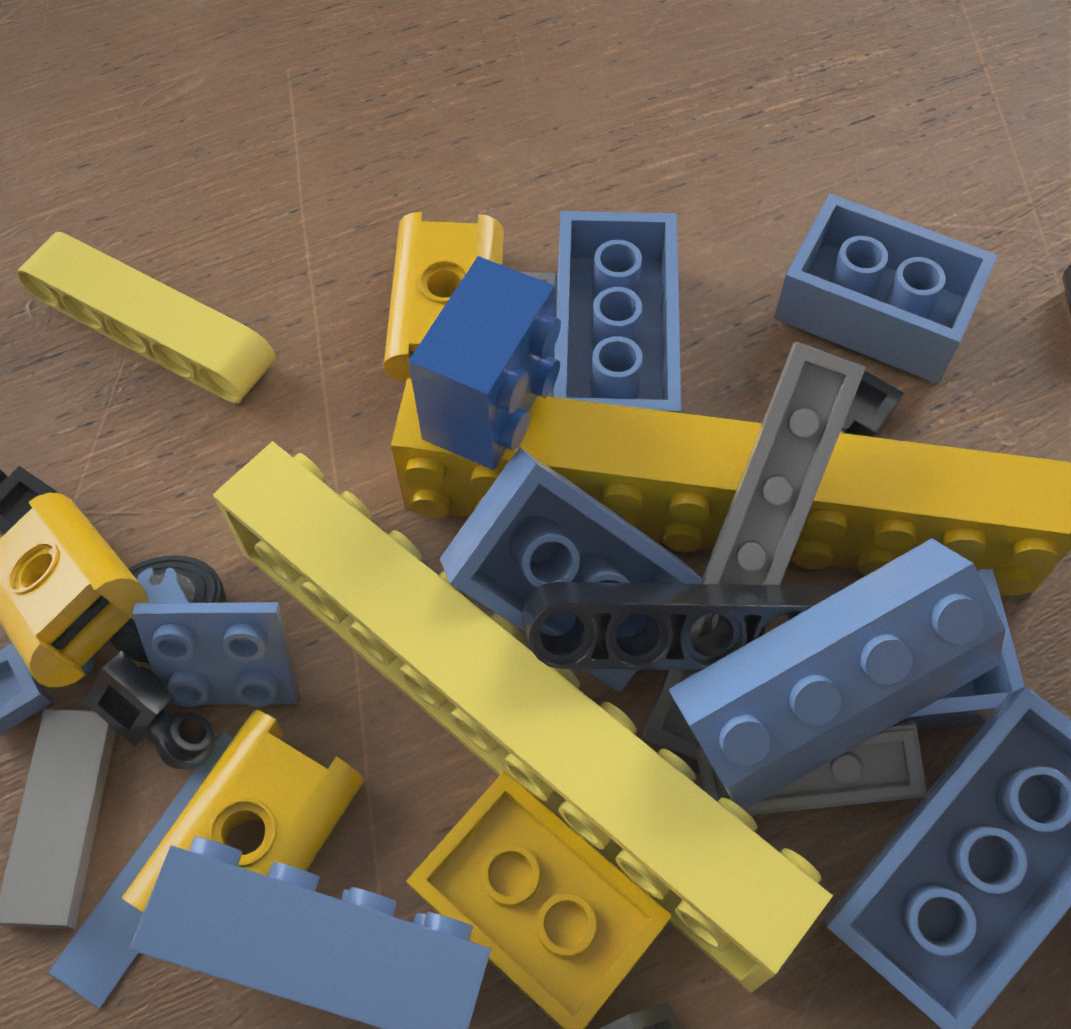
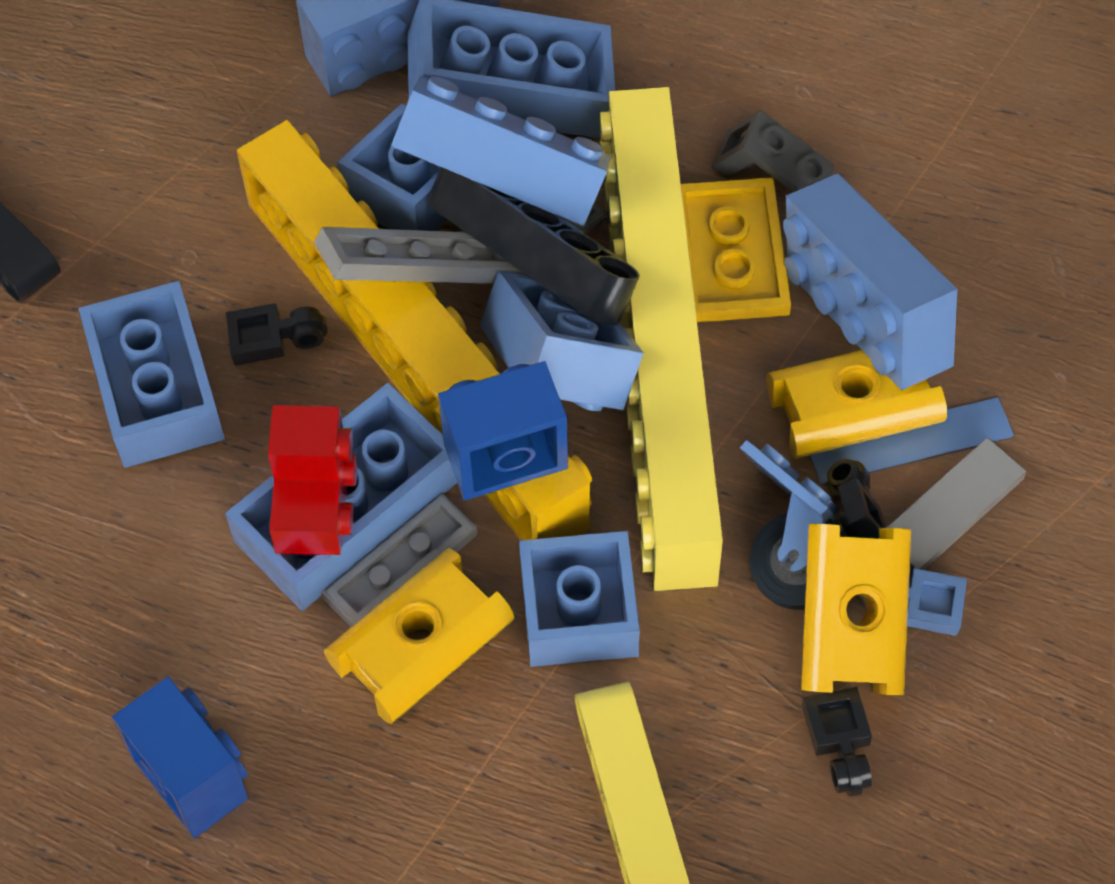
camera: 135 degrees left, 0 degrees up
(331, 403) = (579, 598): none -> medium blue brick
(510, 76) = (183, 755): none -> blue brick
(628, 242) = (311, 474): none -> red brick

